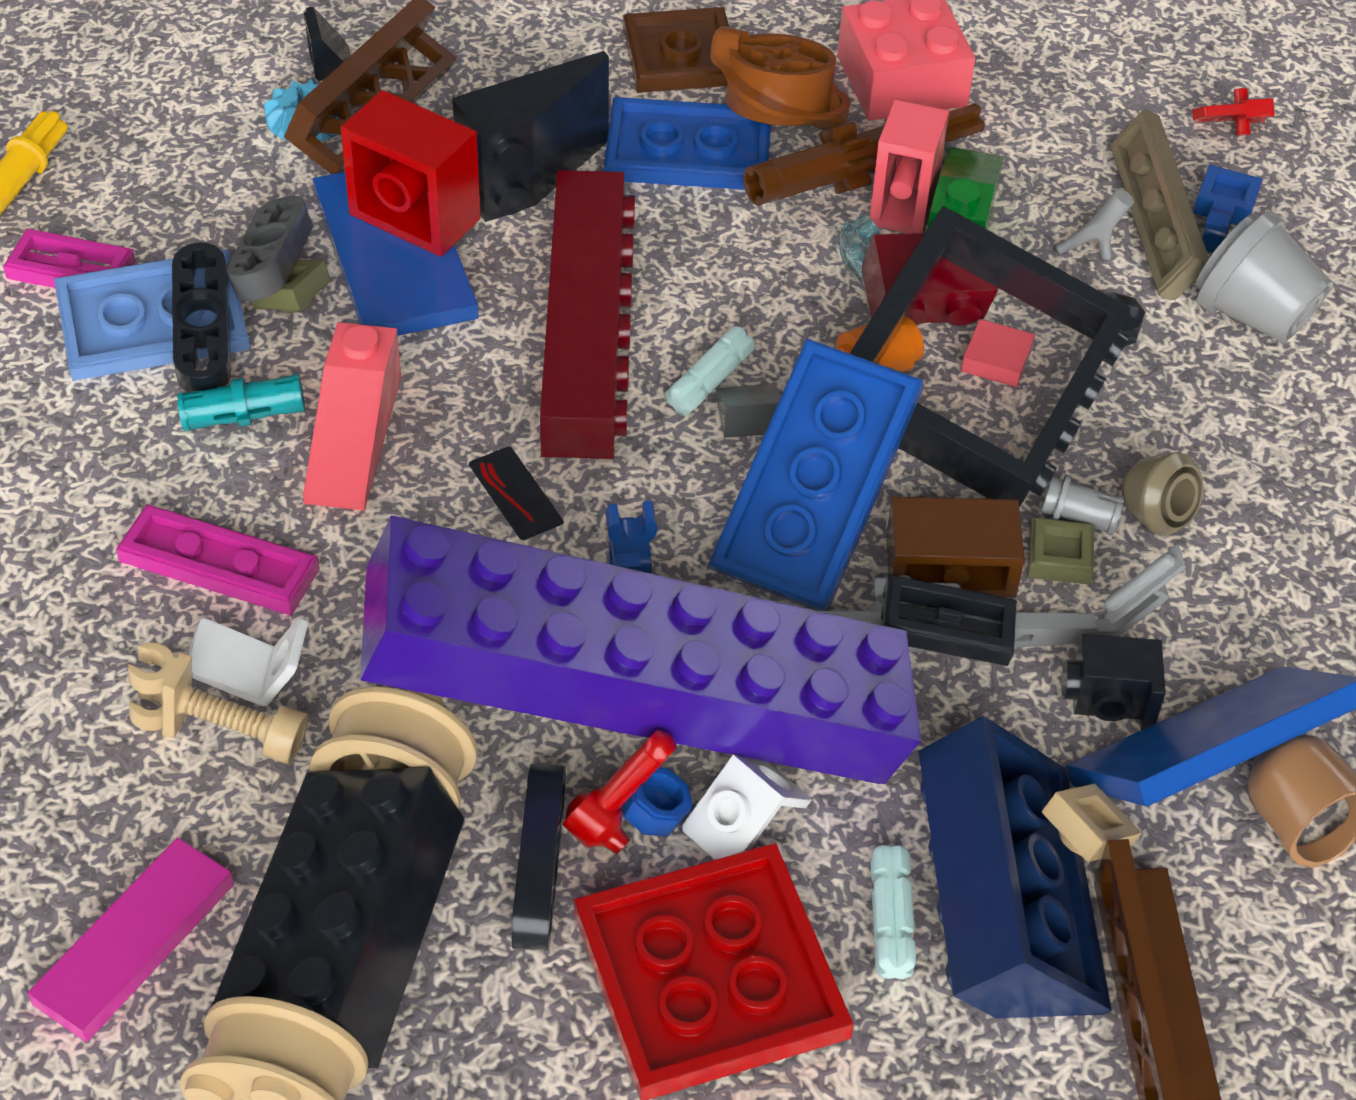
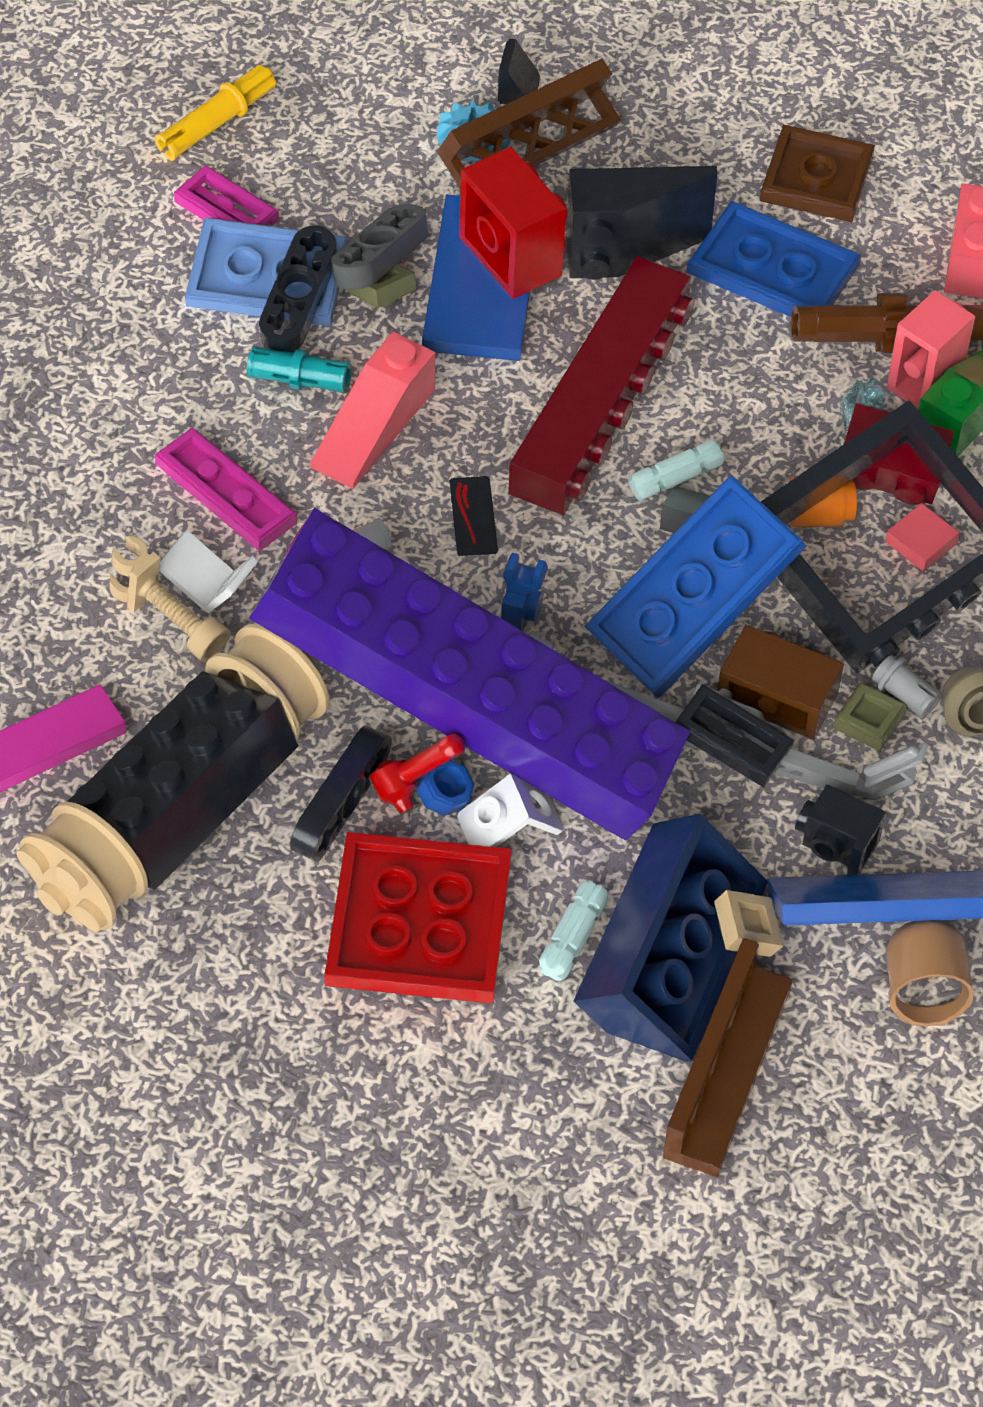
camera: 25 degrees right, 5 degrees up
(779, 79) = (875, 232): dark orange piece -> none

